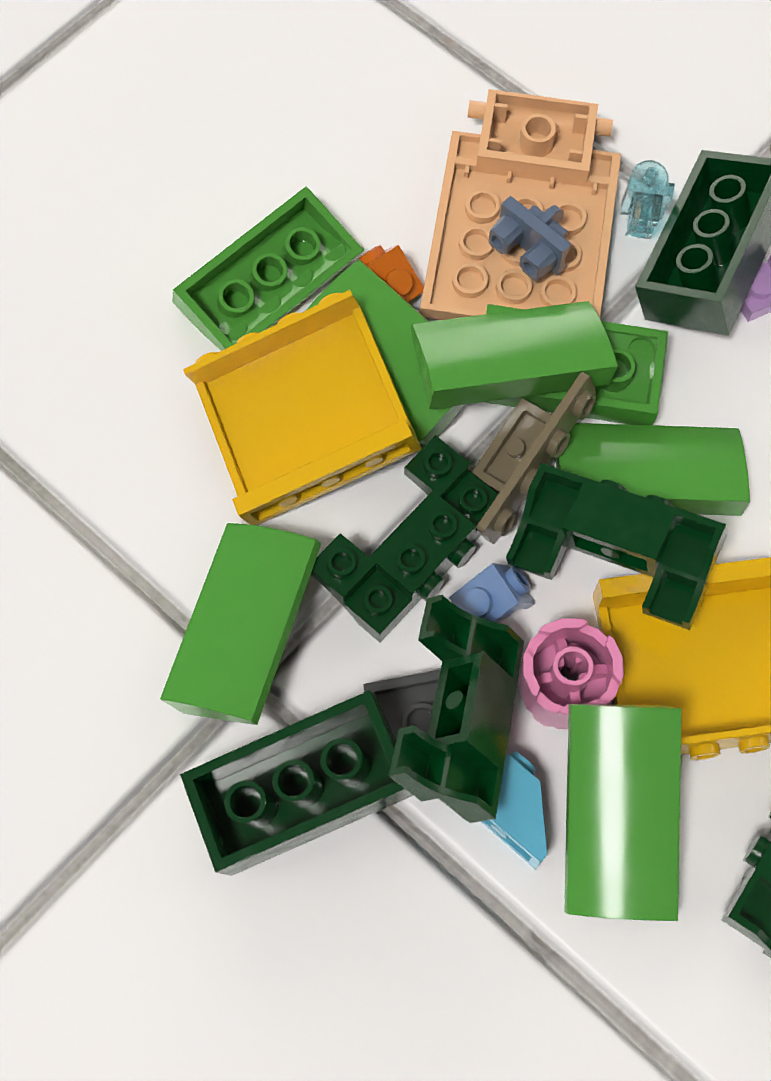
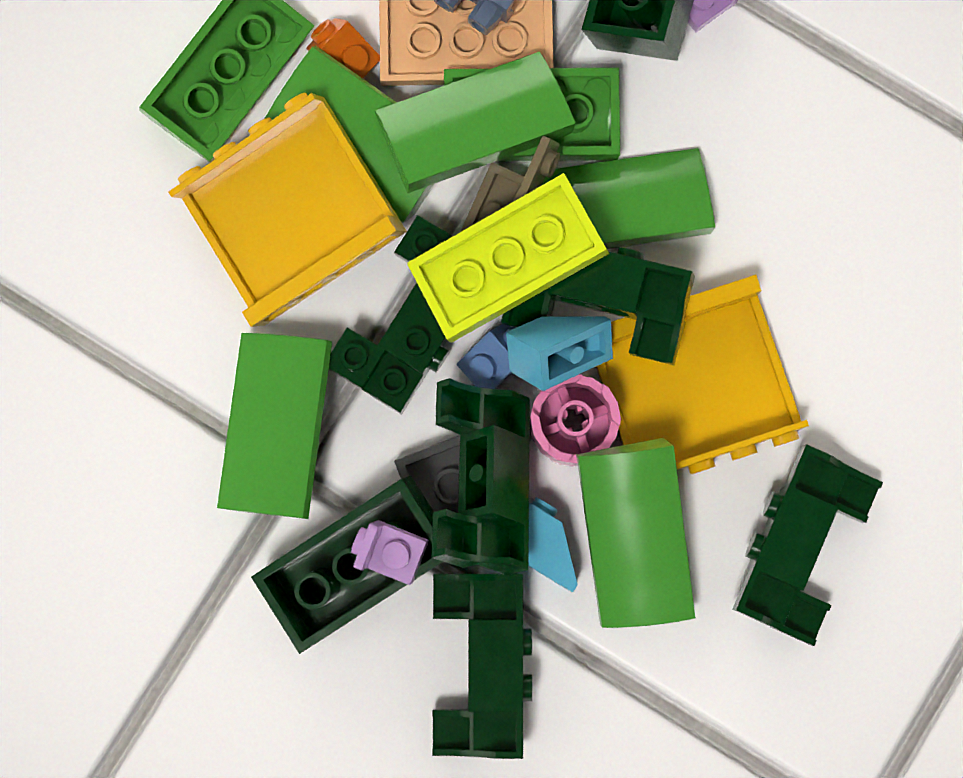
camera: 10 degrees left, 15 degrees up
(340, 766) = (389, 551): none -> lavender bracket
(437, 933) = (495, 666): none -> dark green bracket
(526, 483) = (507, 258): none -> neon yellow plate
(565, 588) = (558, 348): none -> medium azure slope

